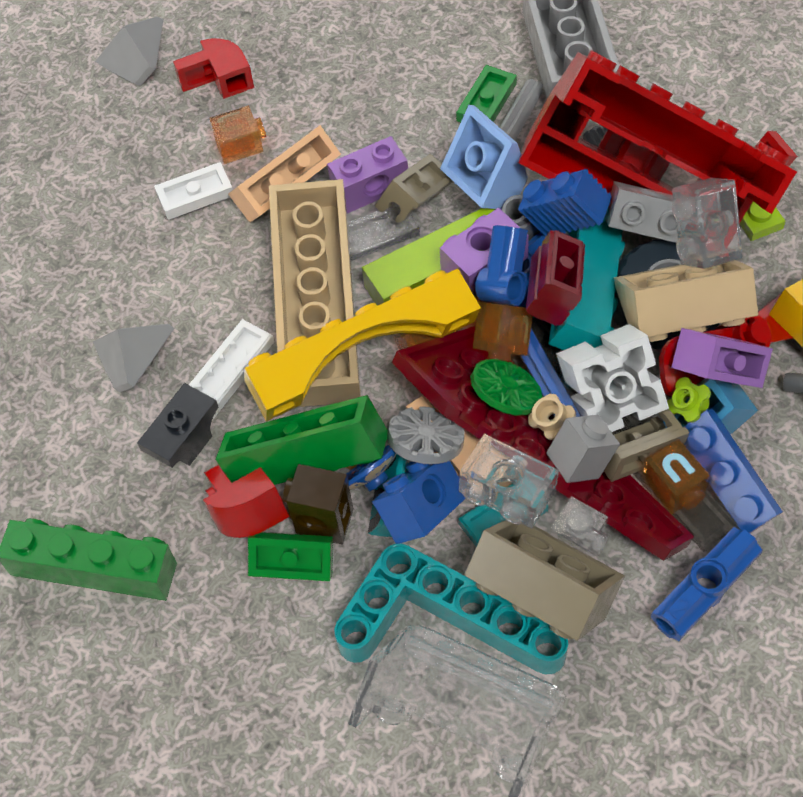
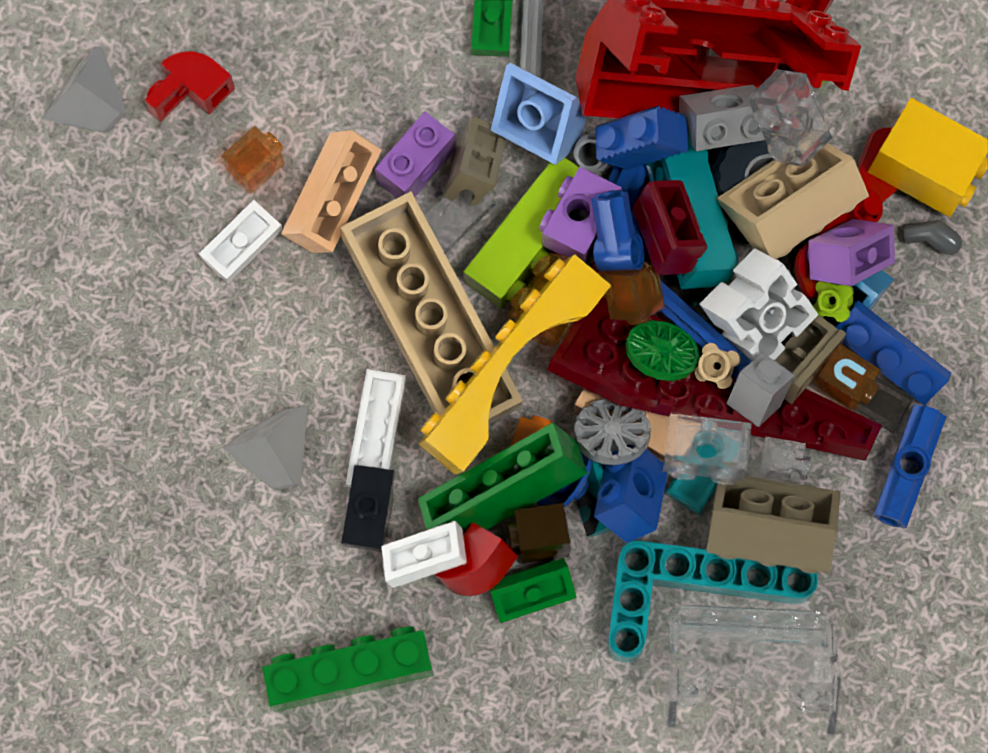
camera: 25 degrees left, 15 degrees up
(200, 476) = (423, 554): none -> white plate

